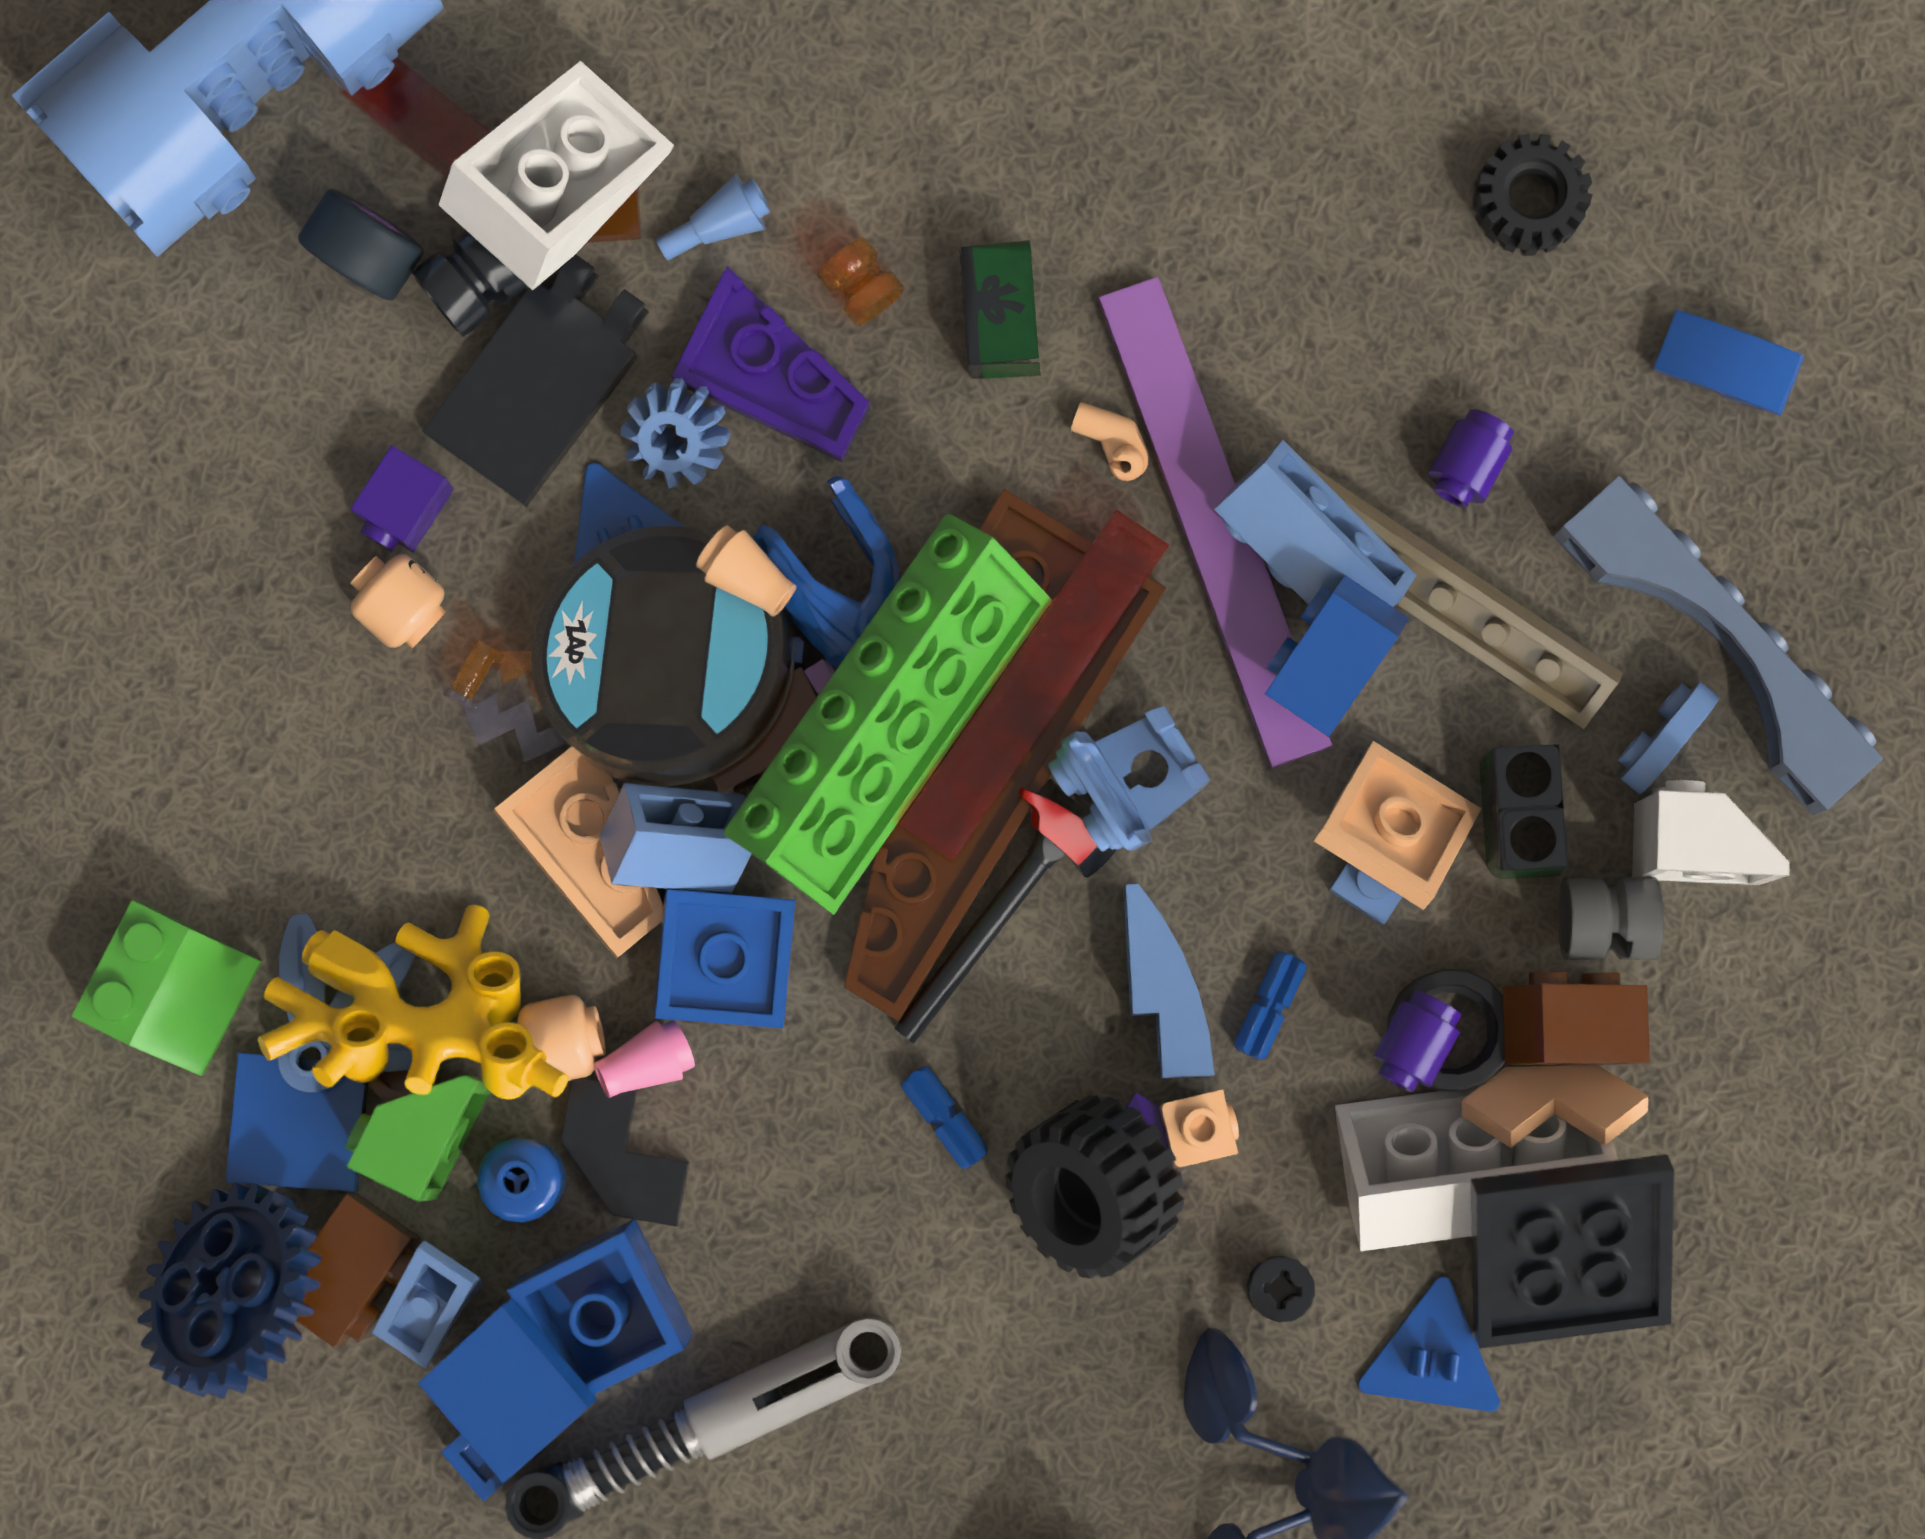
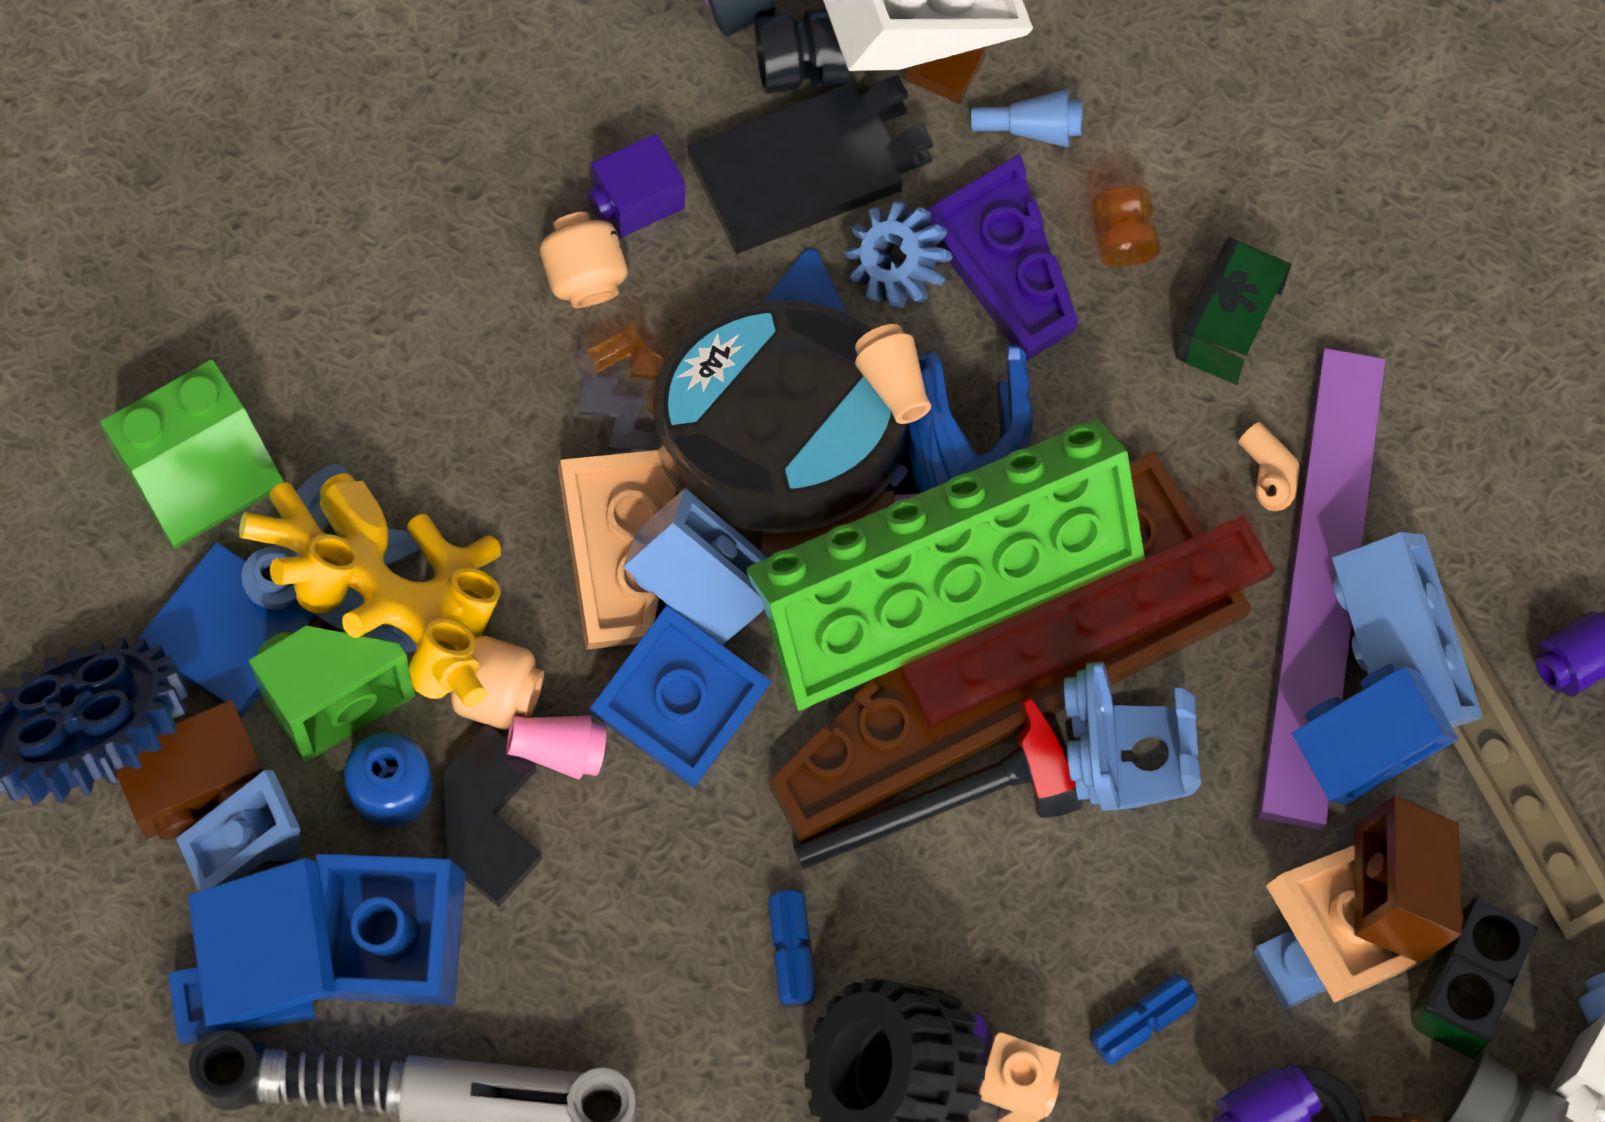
camera: 25 degrees right, 15 degrees down
(1164, 988) = (1055, 948): medium blue slope -> none
(1428, 763) = (1407, 879): none -> reddish brown brick

